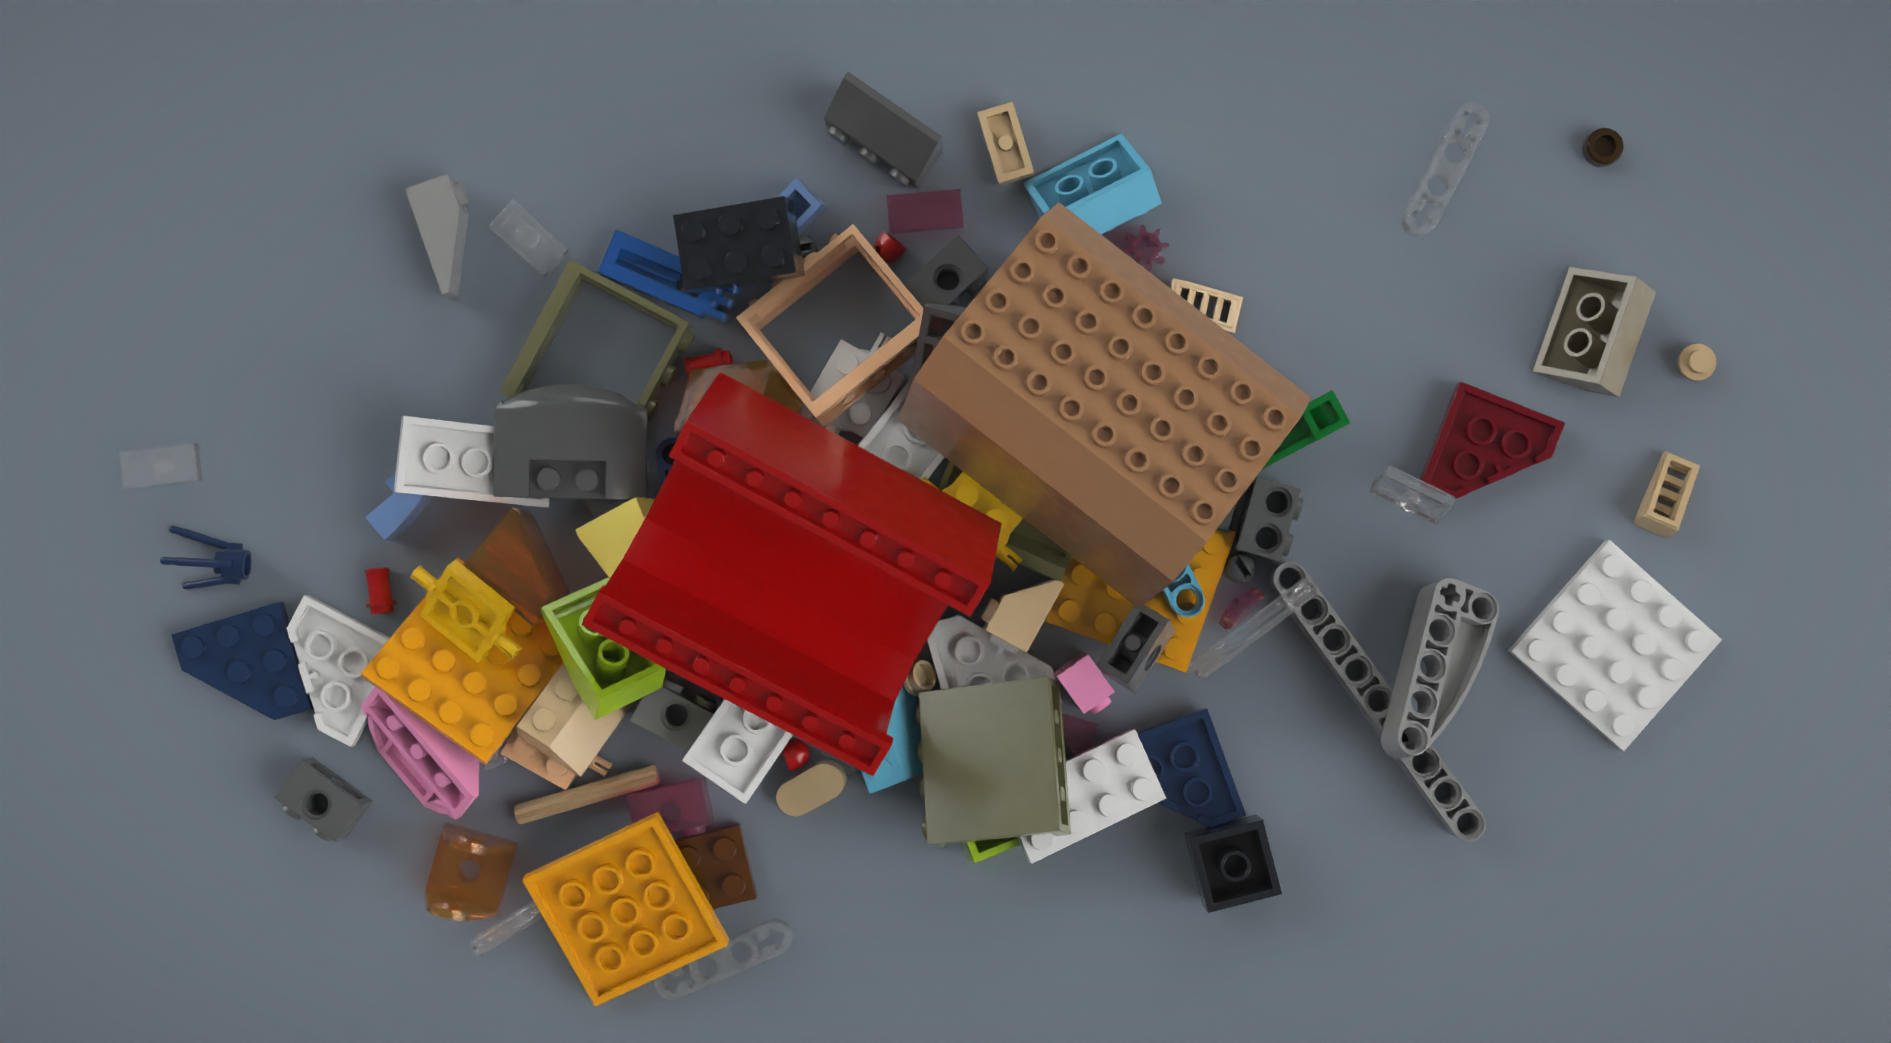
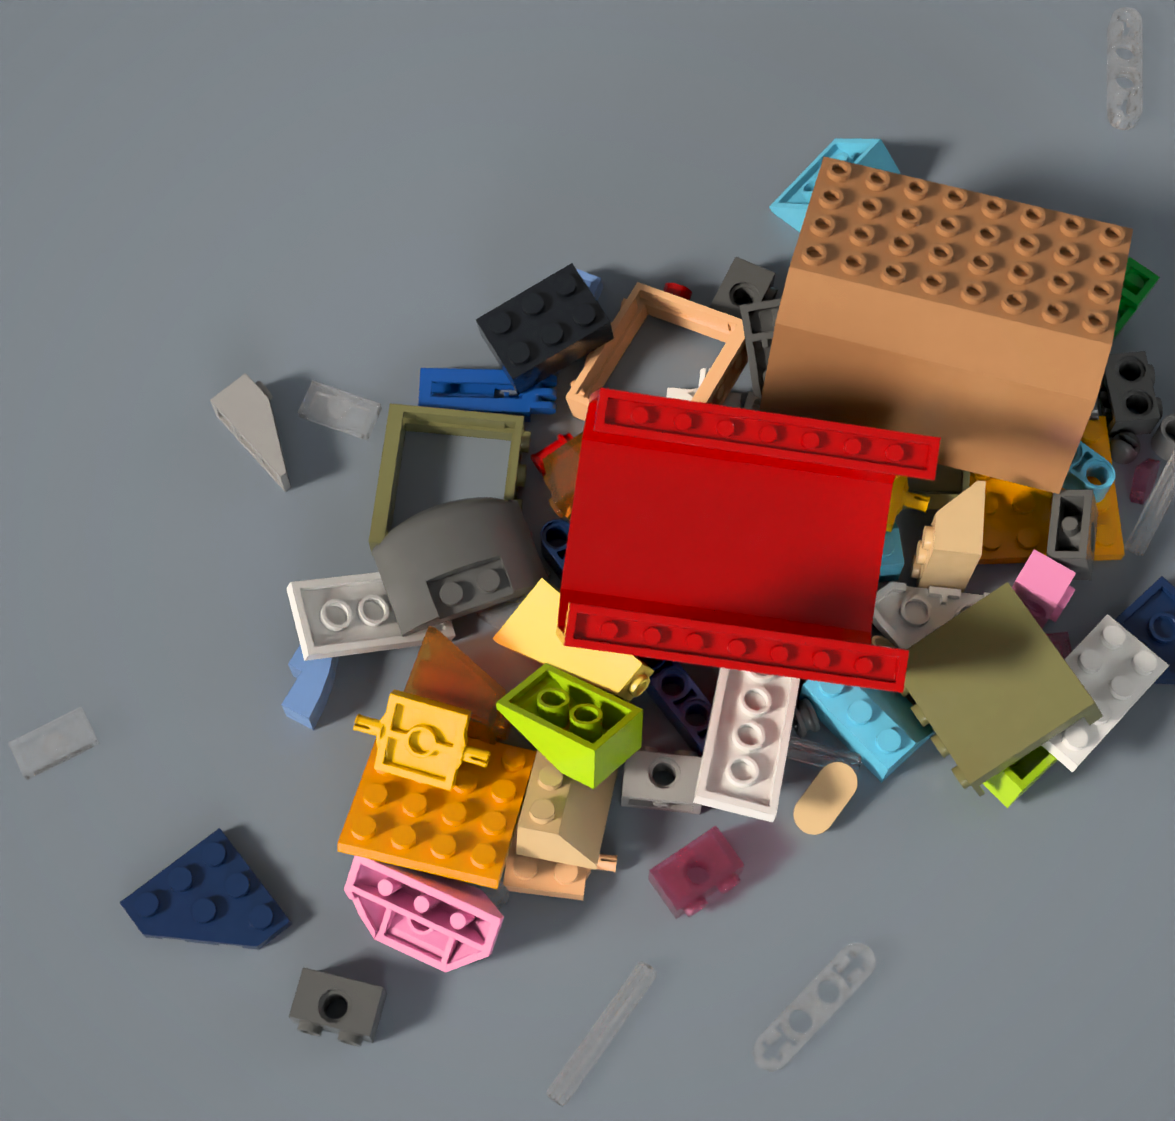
camera: 25 degrees left, 20 degrees down
(232, 563) = (156, 806): dark blue plant -> none
(331, 658) = (302, 868): white plate -> none
(379, 591) = (322, 786): red pin -> none
(464, 899) = (510, 989): clear orange hose -> none
(586, 794) = (602, 897): tan axle -> none
(626, 909) = (697, 985): light orange plate -> none
(720, 865) = (762, 922): reddish brown plate -> none
(796, 754) = (795, 773): red hinge -> none
(882, 132) = (630, 198): dark grey slope -> none
(925, 211) = (694, 258): clear pink tile -> none
(1005, 143) = (739, 178): tan plate -> none

